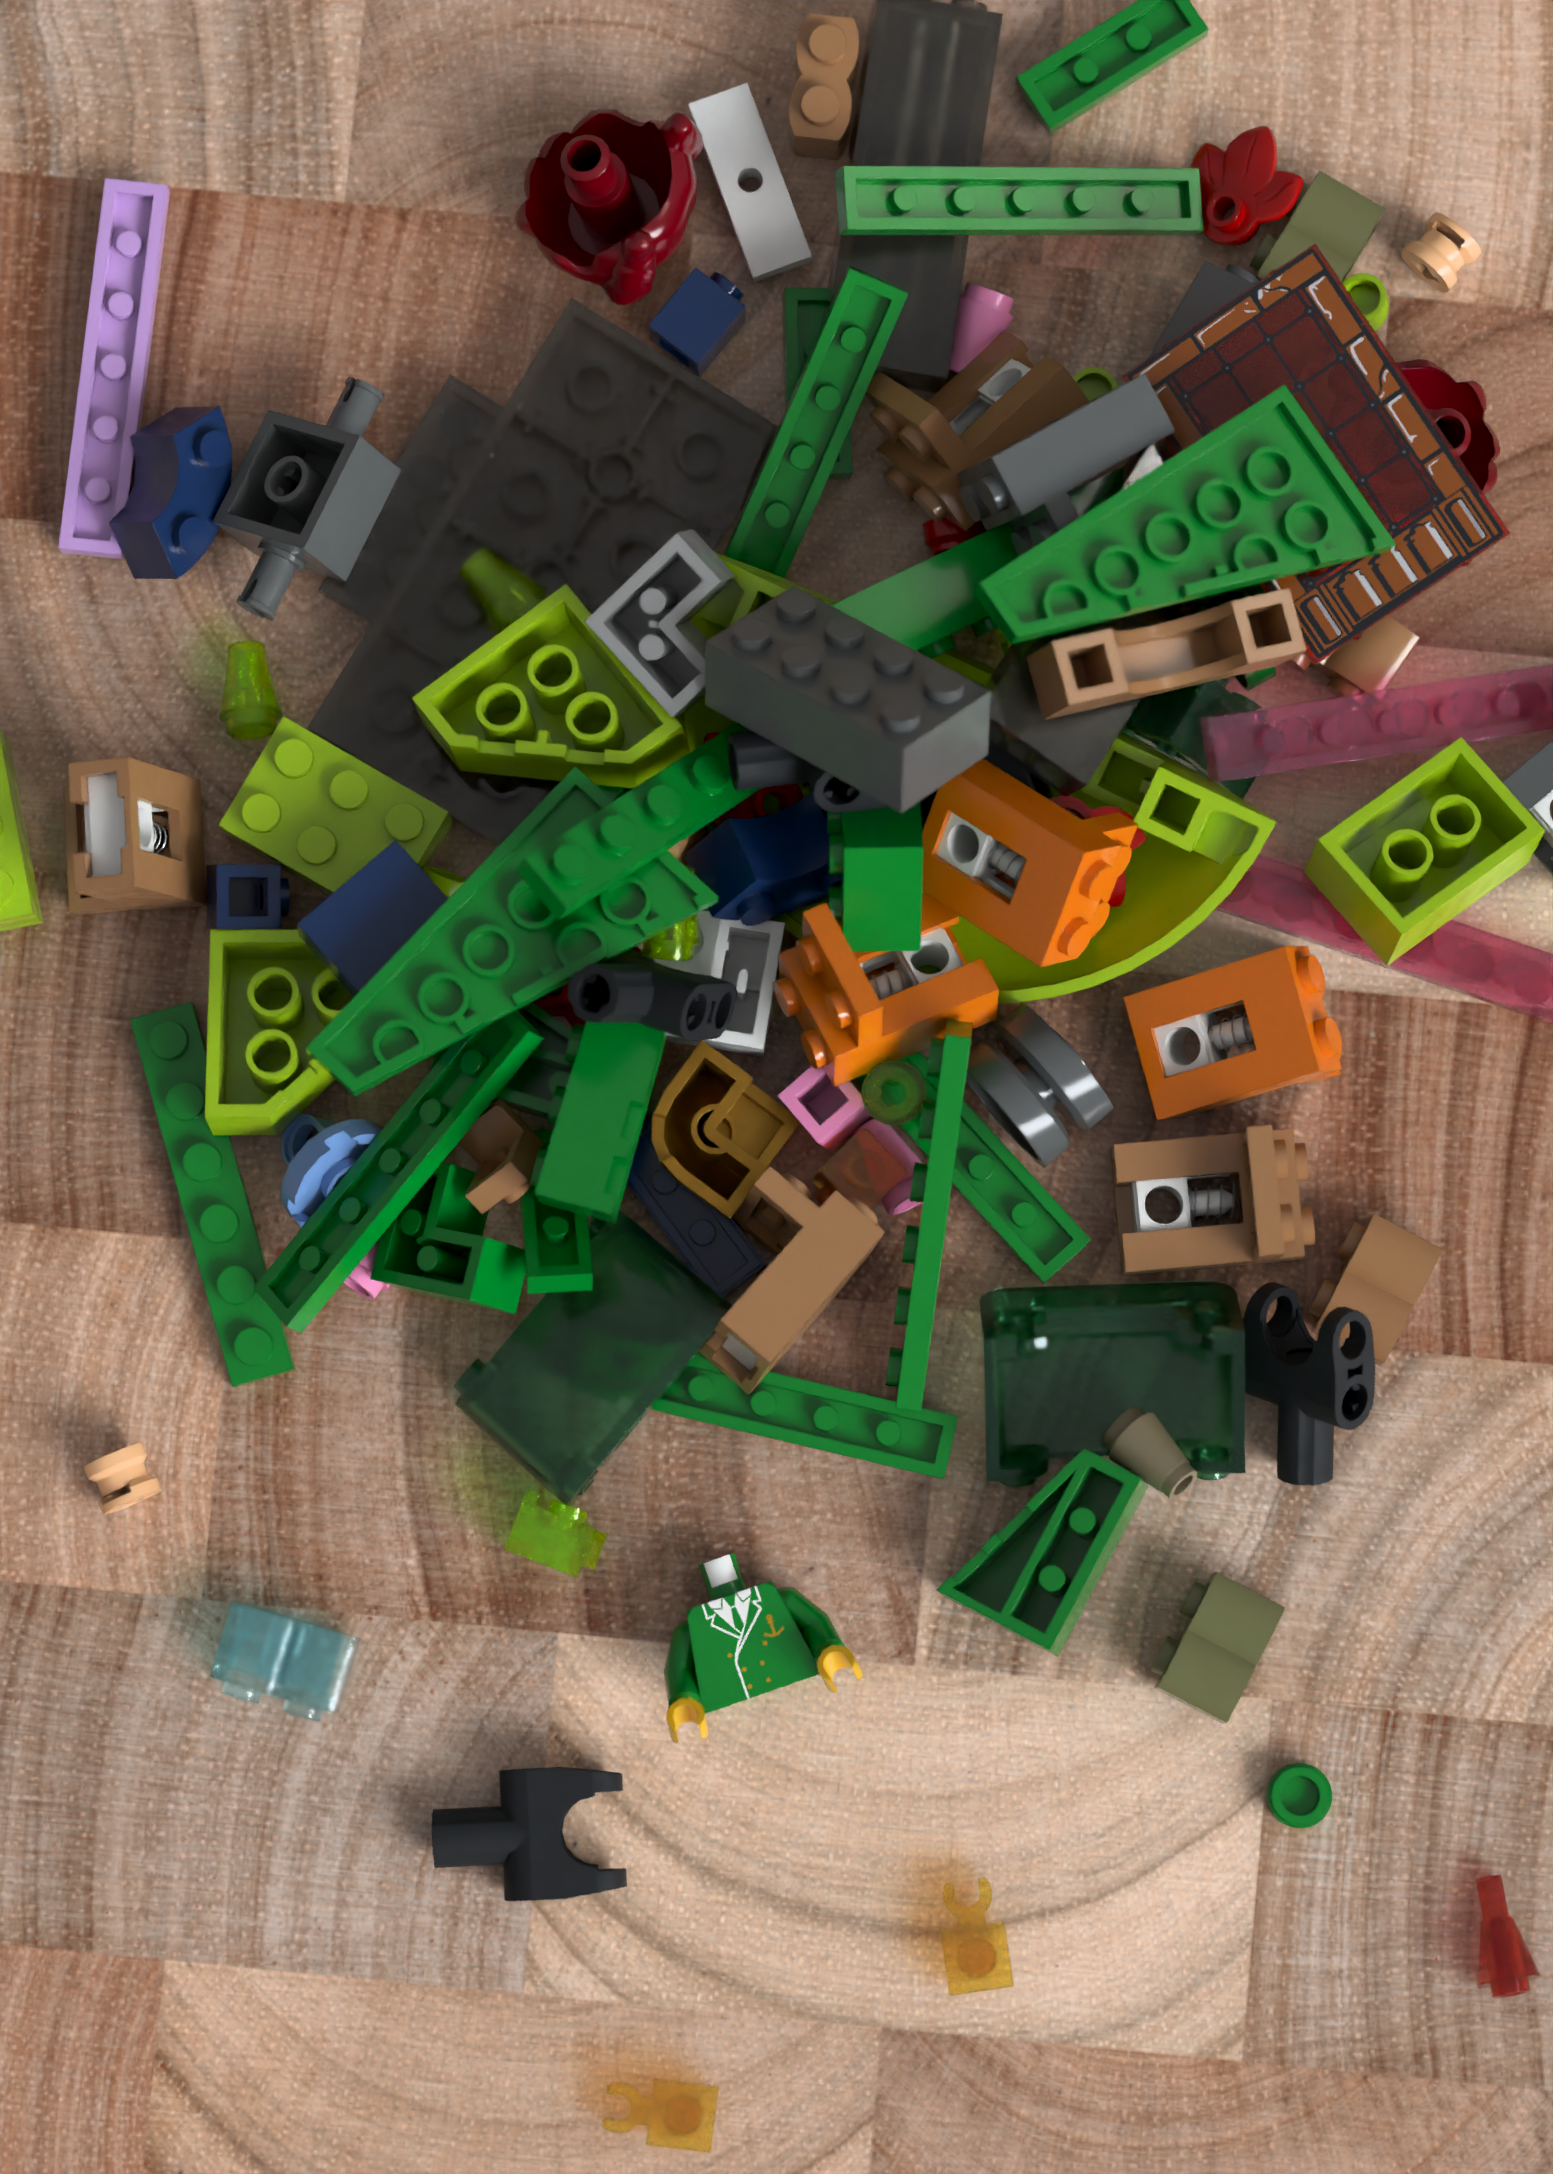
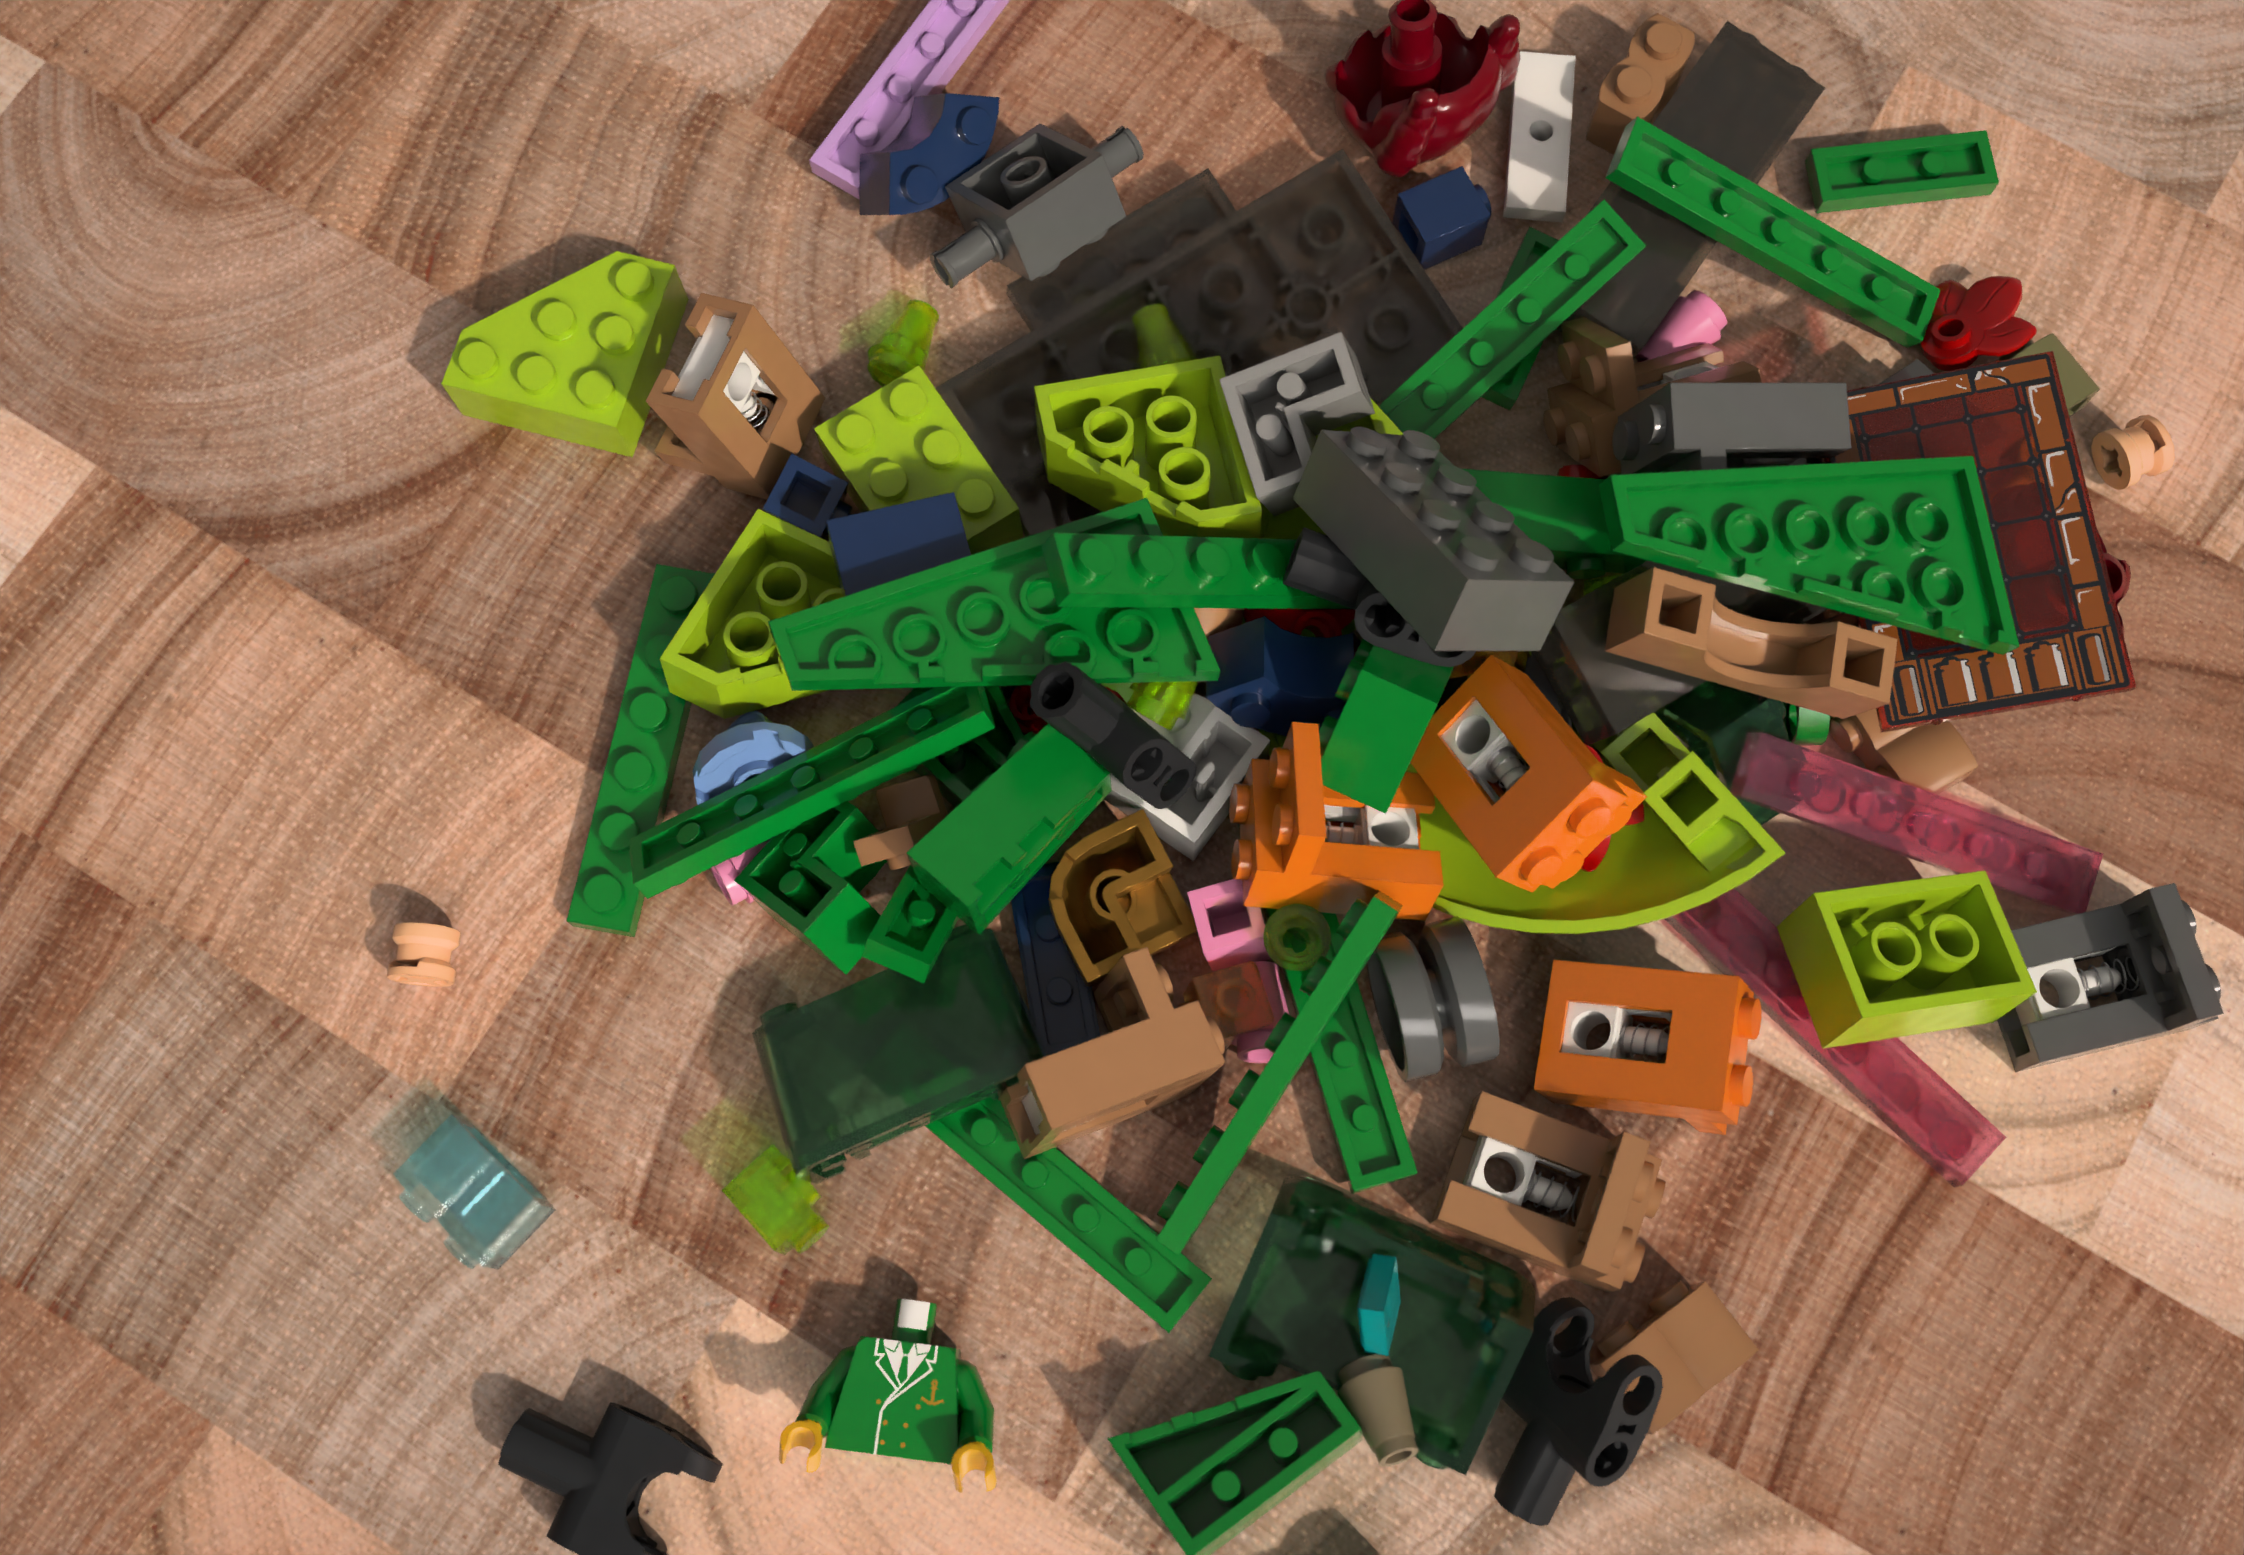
camera: 25 degrees right, 10 degrees down
(1109, 1368) = (1379, 1304): none -> teal tile

